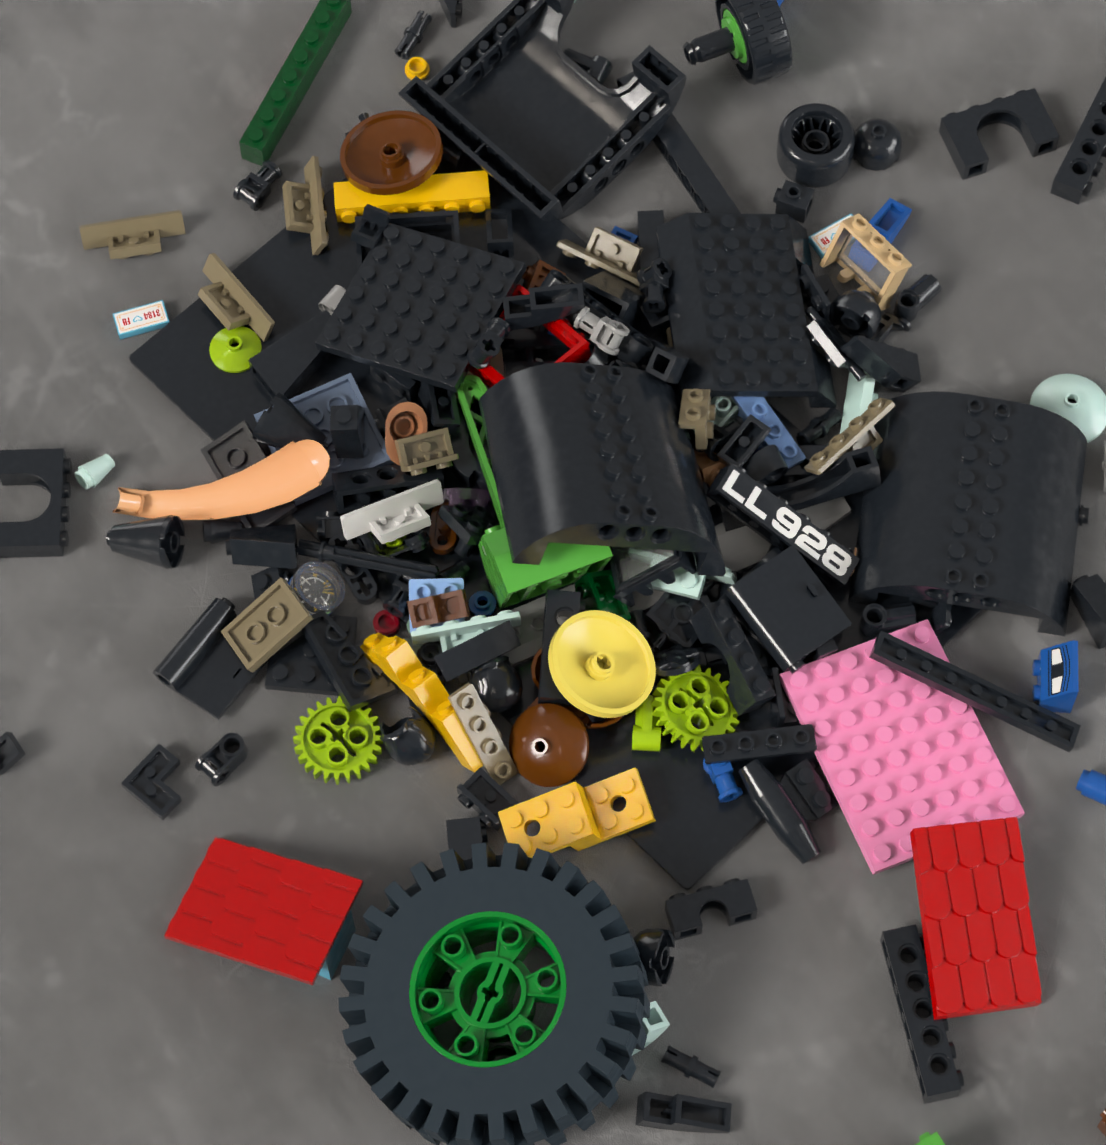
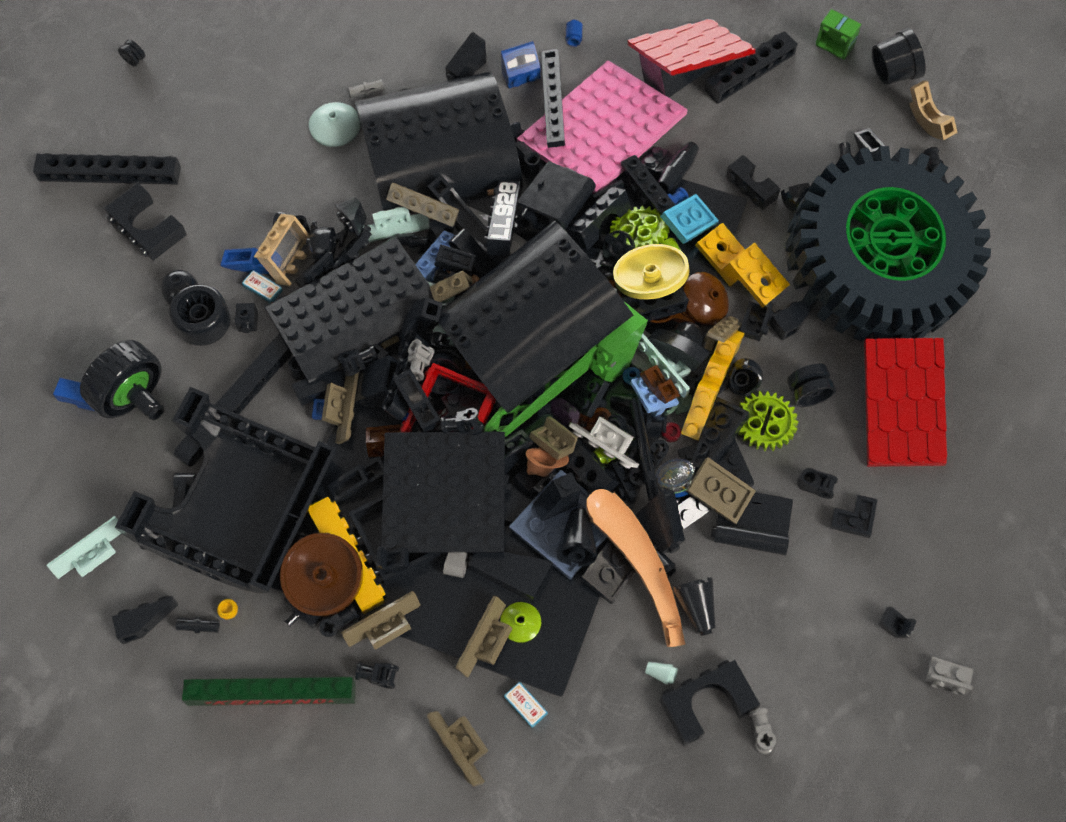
camera: 115 degrees left, 0 degrees up
(331, 152) = (339, 620): none -> black connector
(351, 810) = (811, 385): none -> black wheel
(678, 775) = (689, 218): none -> medium azure plate

